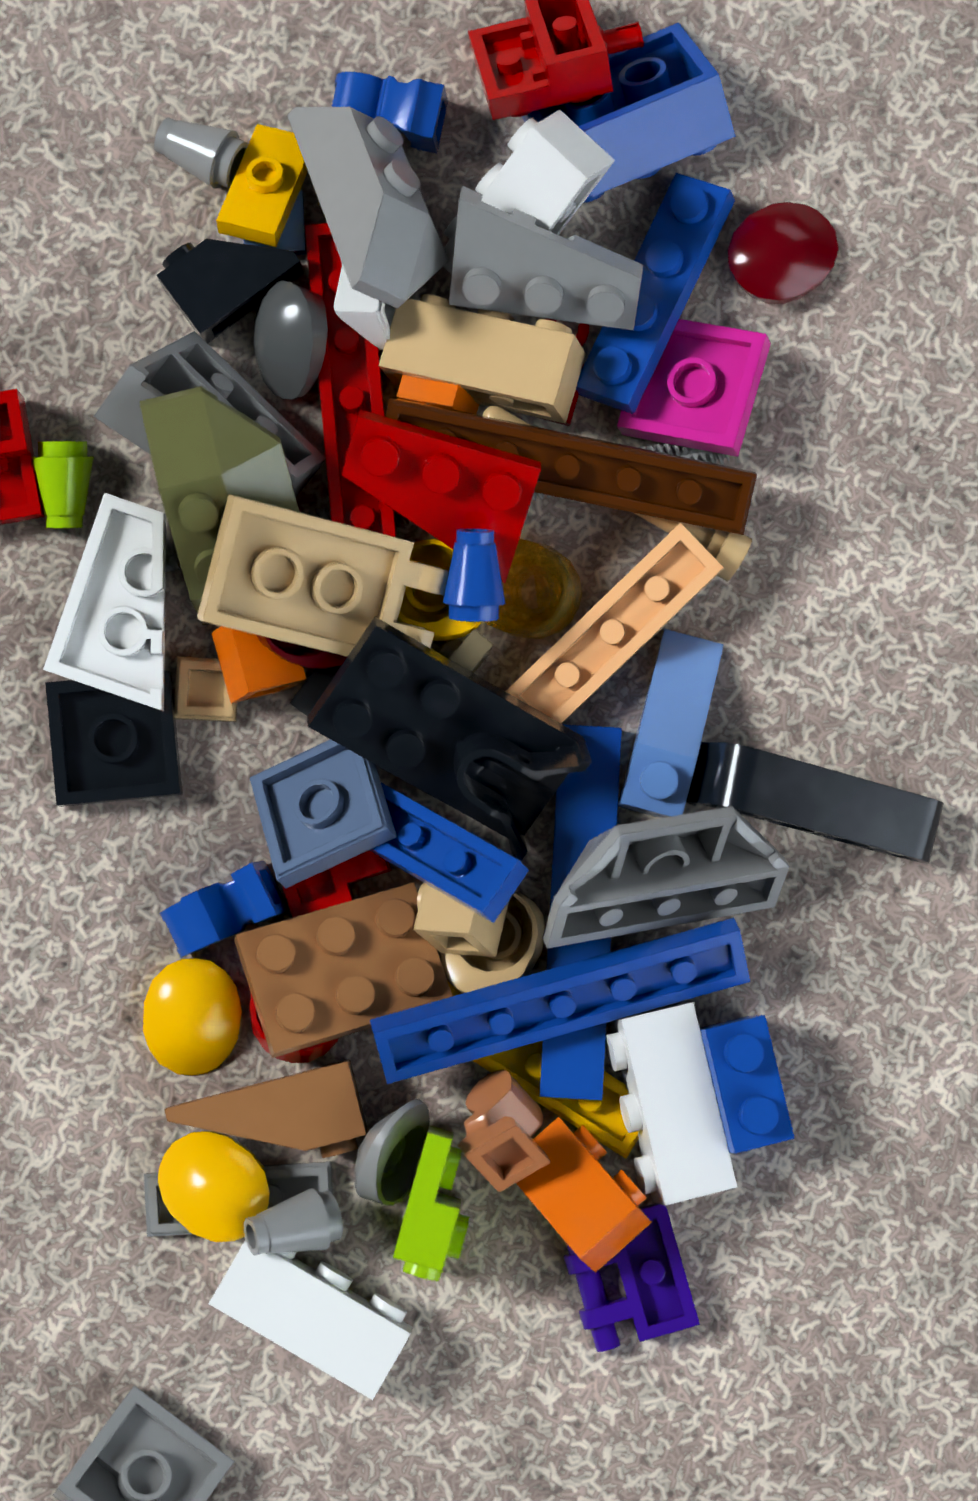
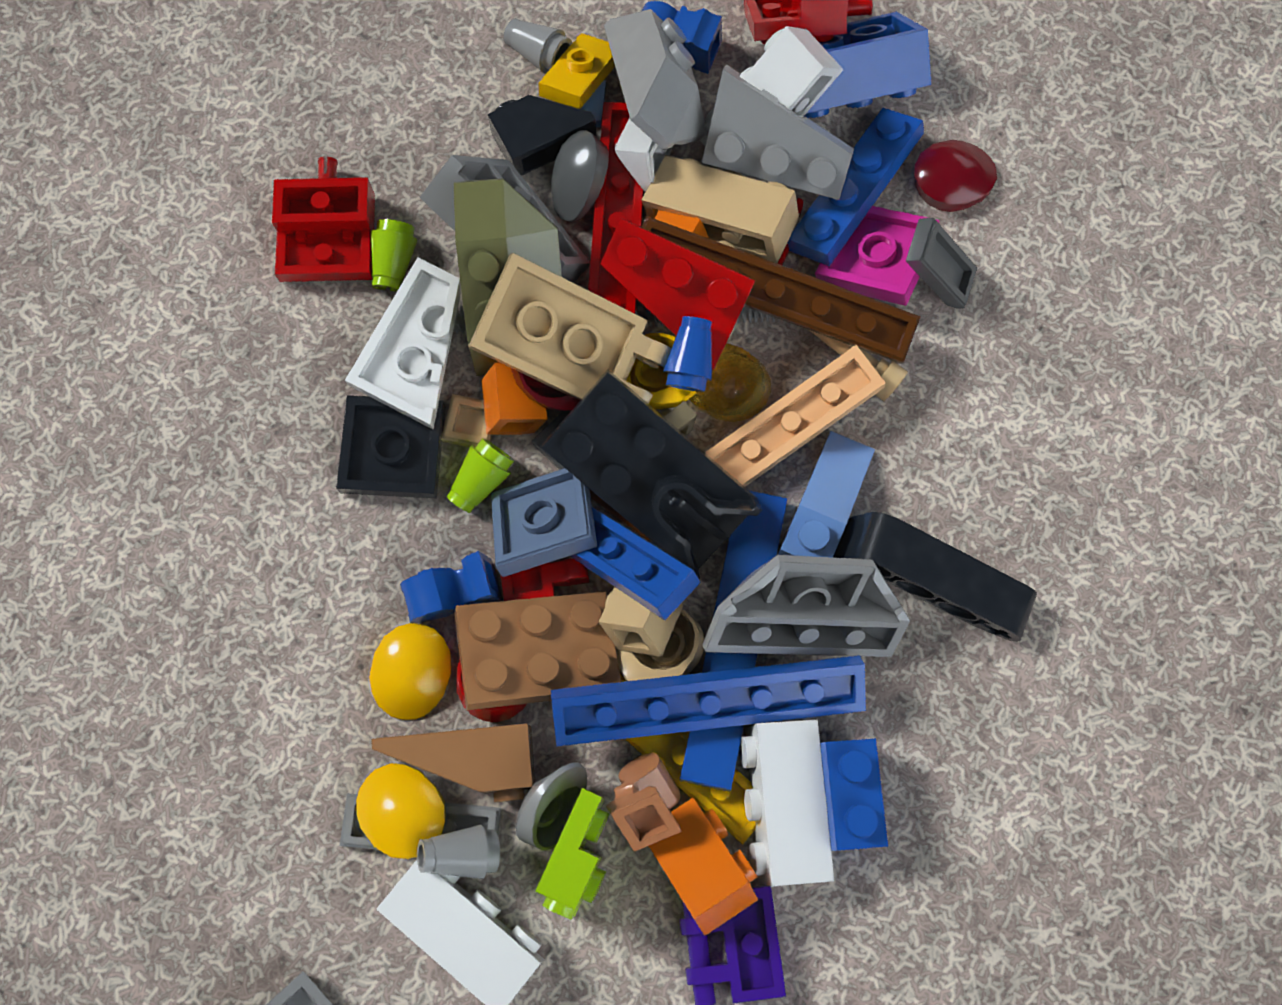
camera: 10 degrees right, 10 degrees down
(232, 758) = (479, 475): none -> lime cone
(777, 392) = (941, 263): none -> dark grey tile

